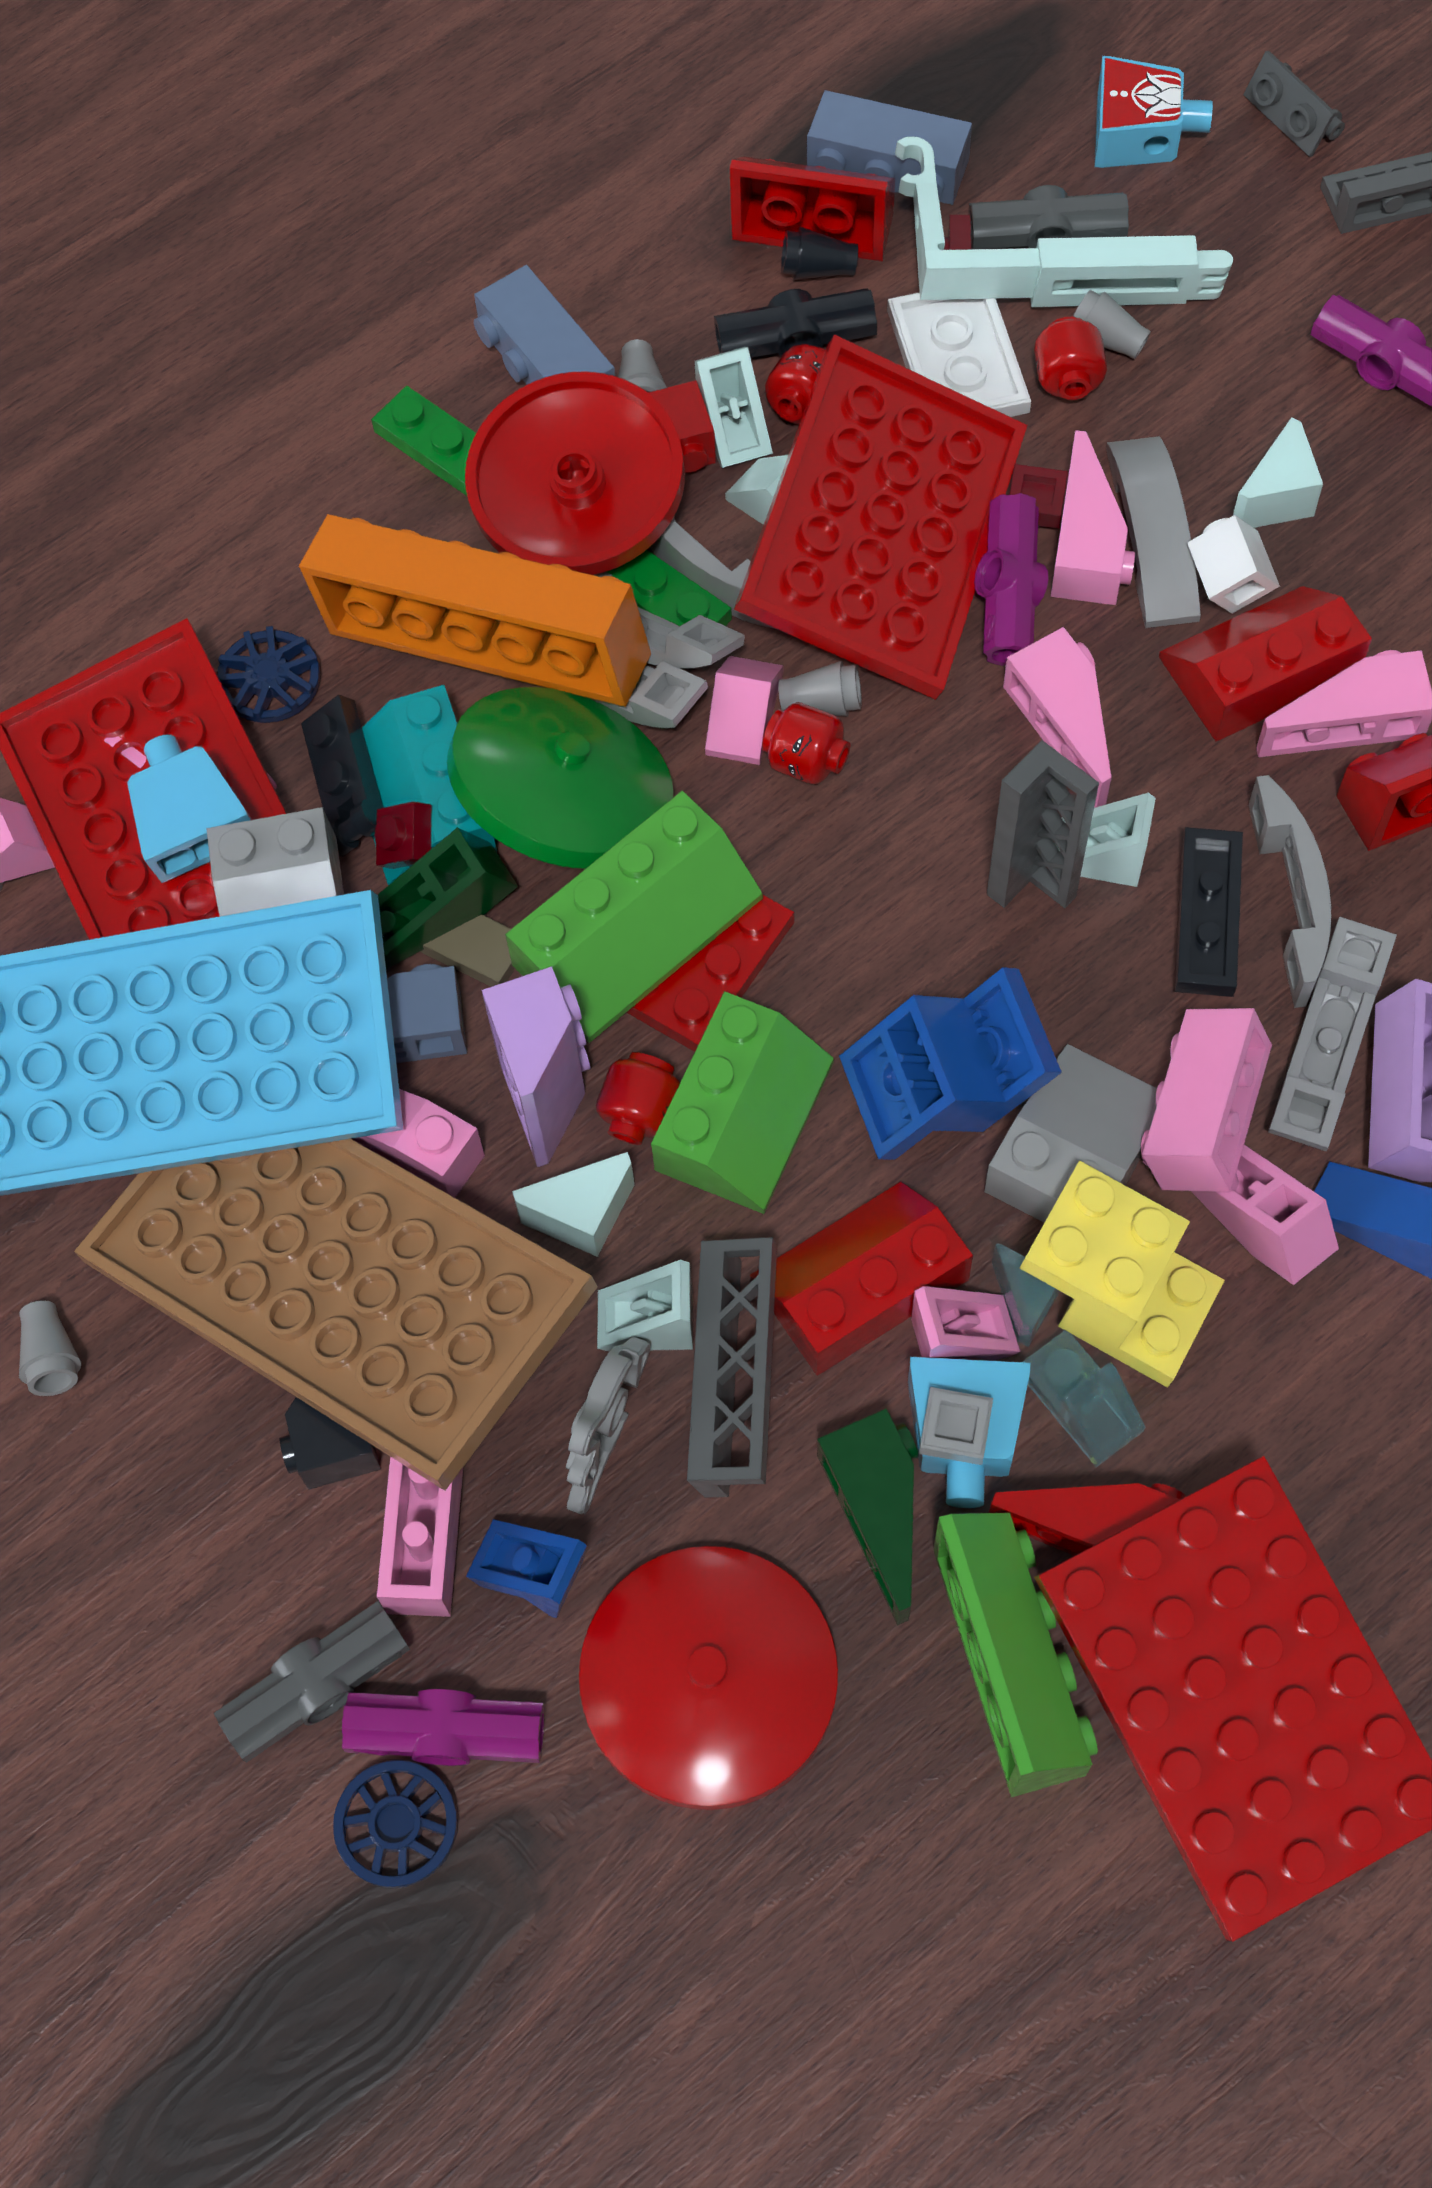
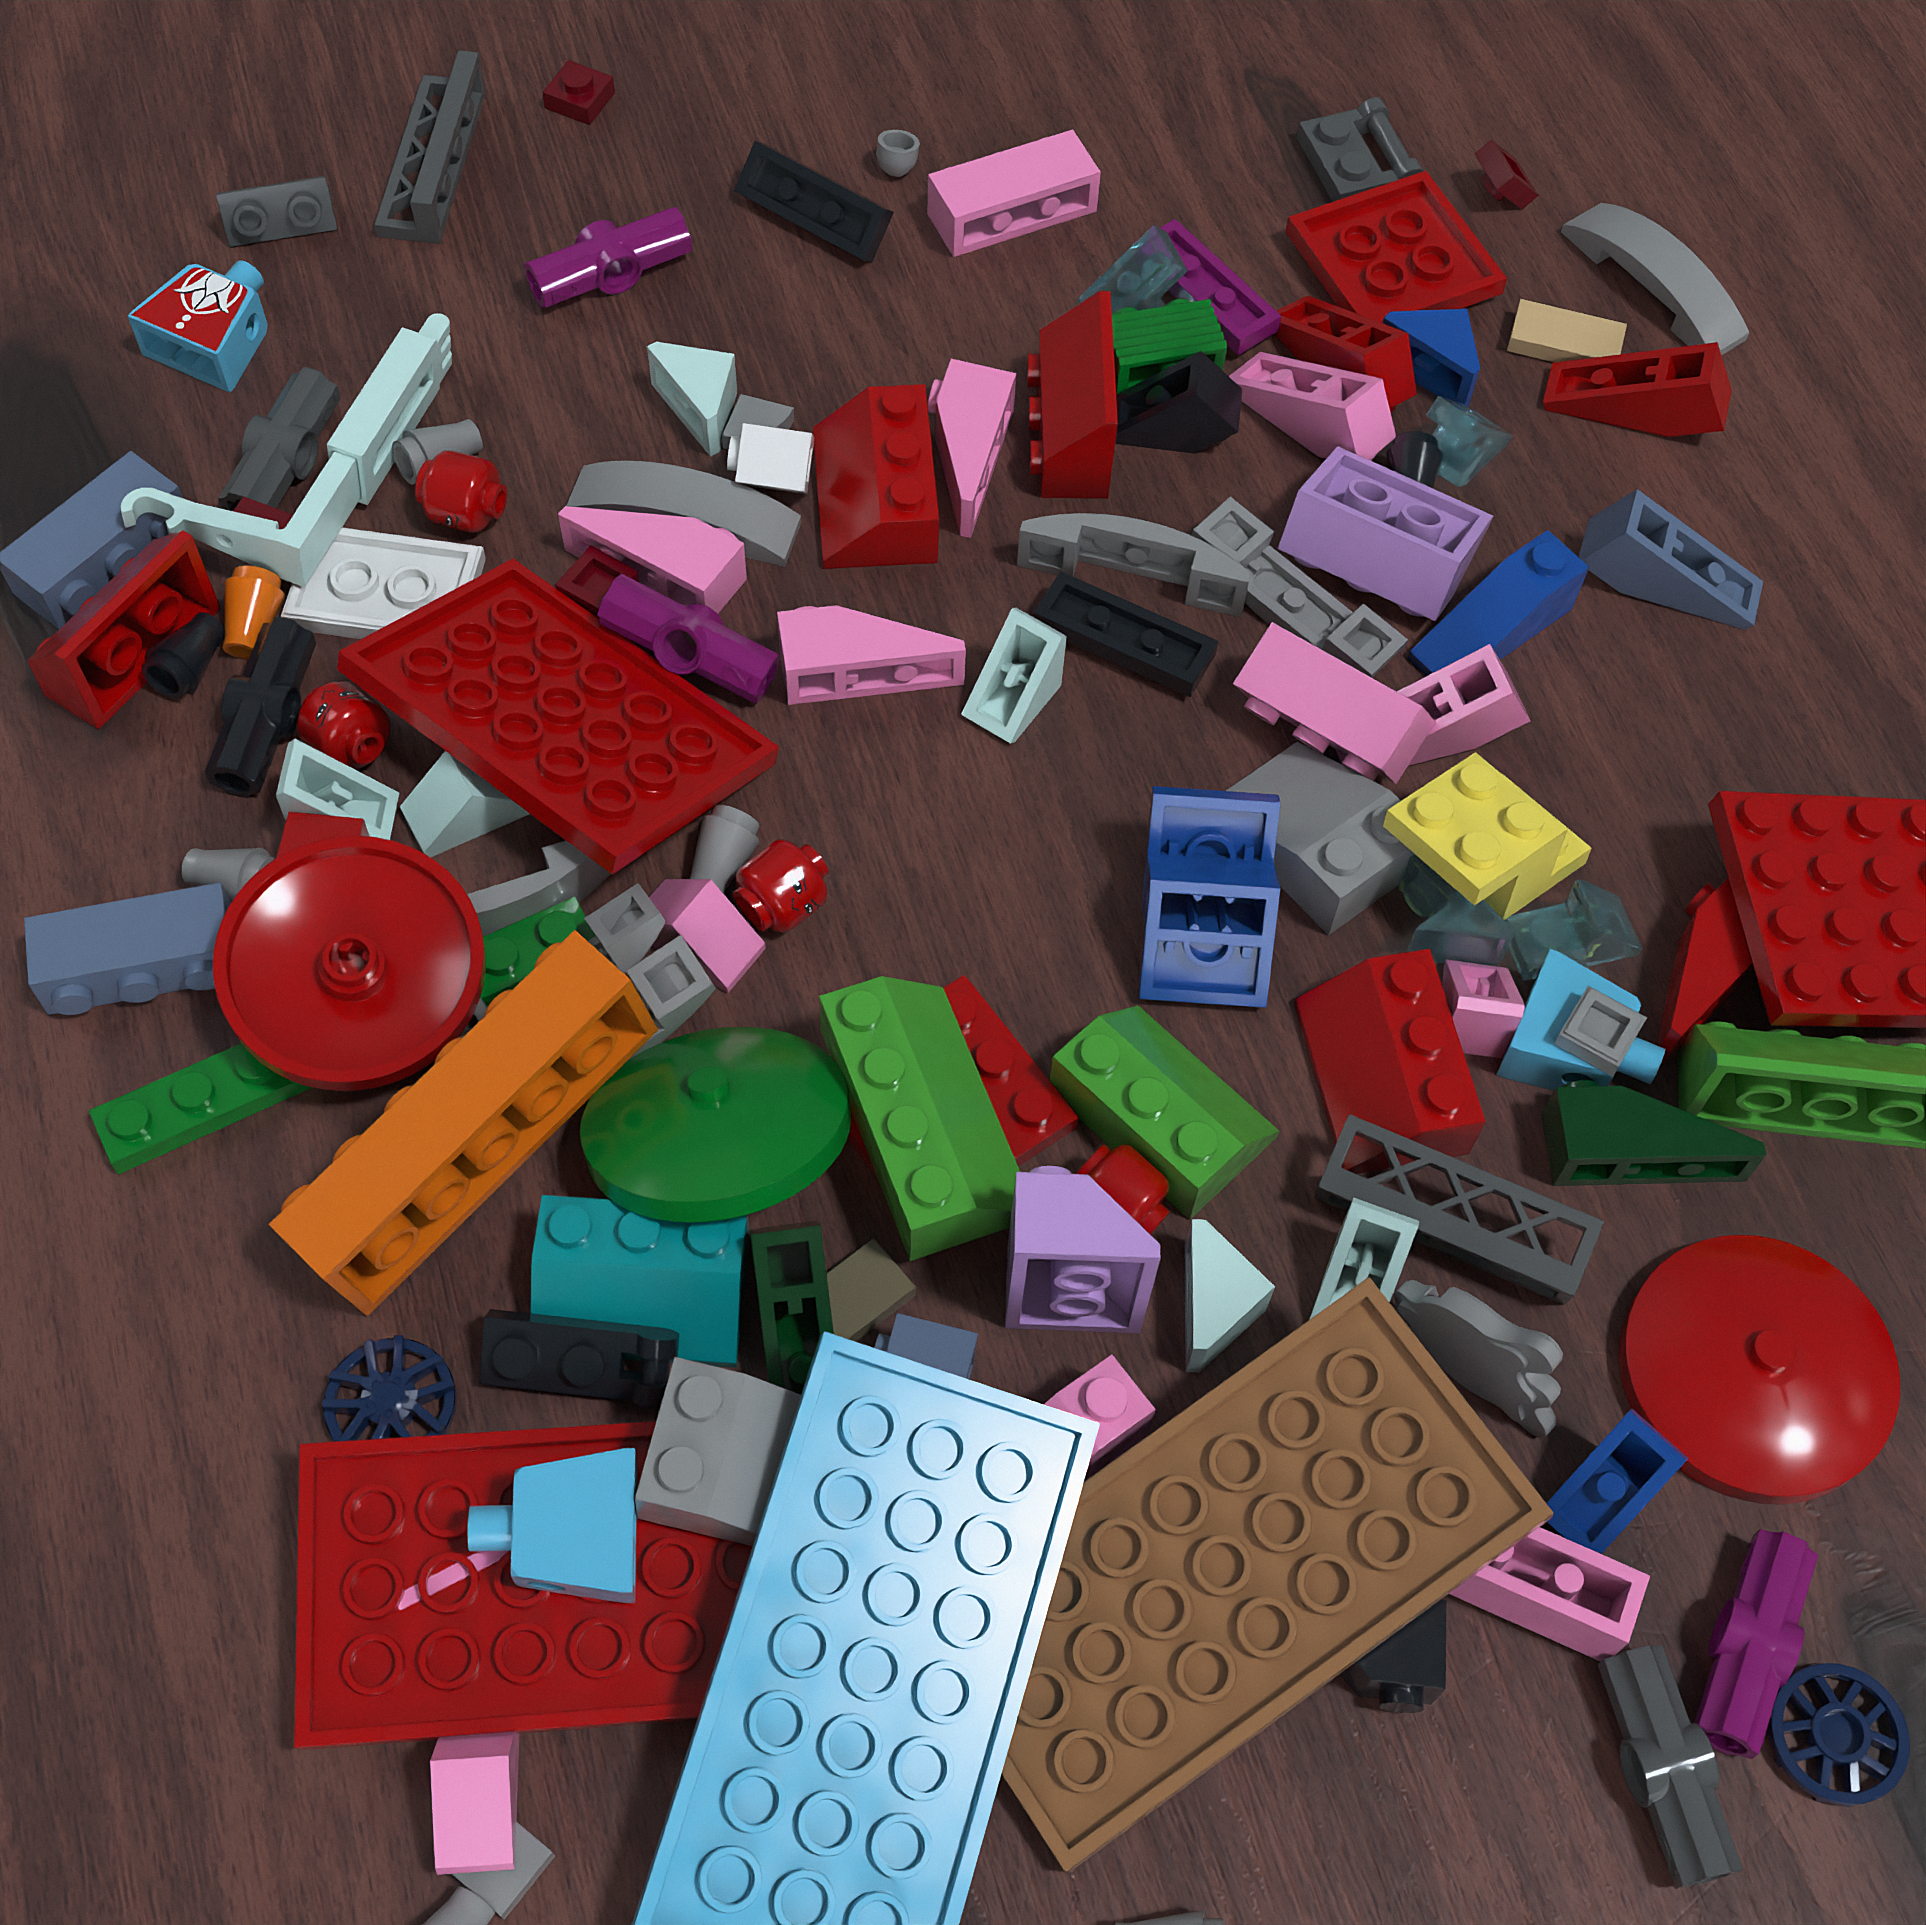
camera: 75 degrees left, 5 degrees down
(402, 834) = (708, 1308): dark red plate -> none
(885, 274) = (250, 600): none -> orange cone
(1030, 821) = (1026, 694): dark grey fence -> none
(1283, 540) = (756, 412): none -> light grey tile

